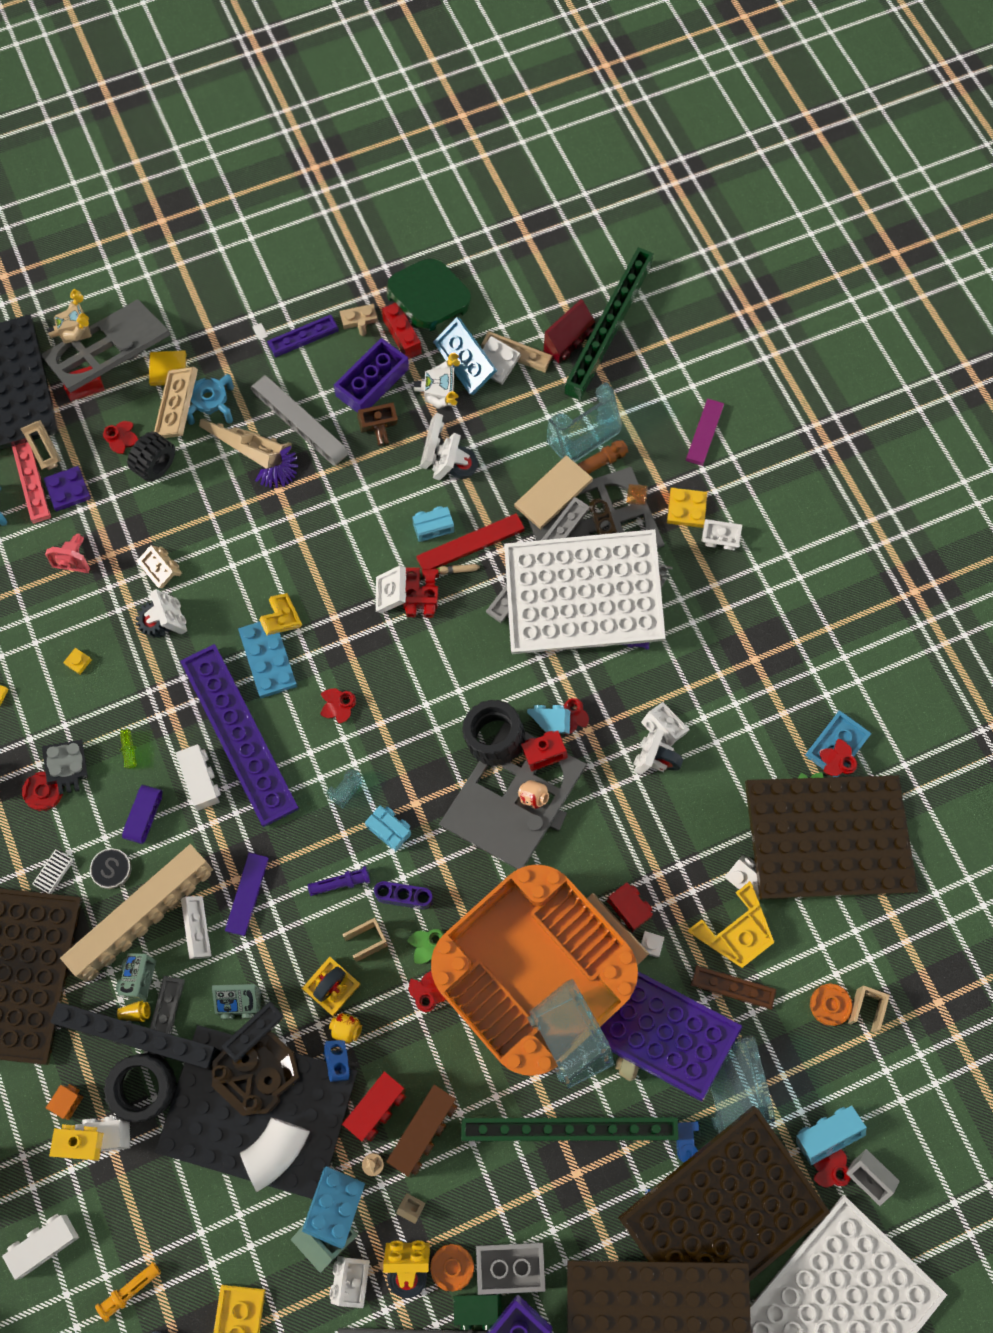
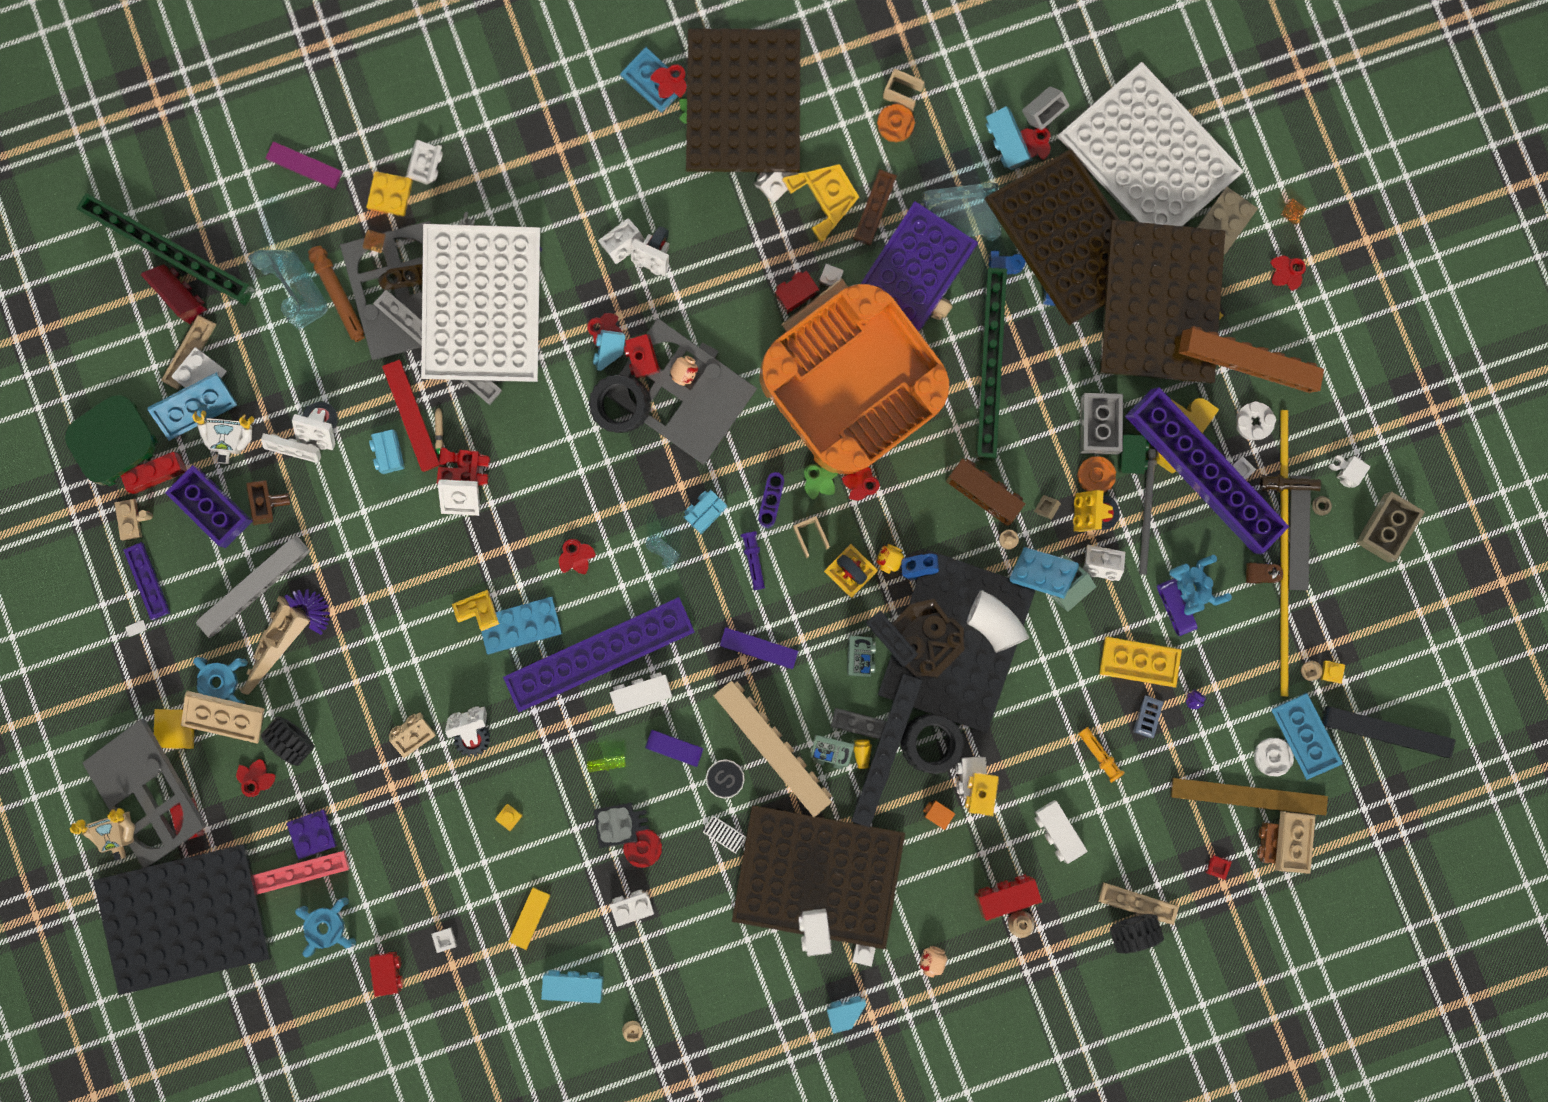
camera: 85 degrees left, 15 degrees up
(38, 426) = (246, 867): tan window -> none
(68, 556) = (396, 827): coral piece -> none
(195, 927) = (788, 695): white plate -> none
(375, 1108) = (963, 532): red brick -> none
(553, 492) = (364, 325): tan tile -> none
(571, 1035) = (915, 349): clear light blue windscreen -> none

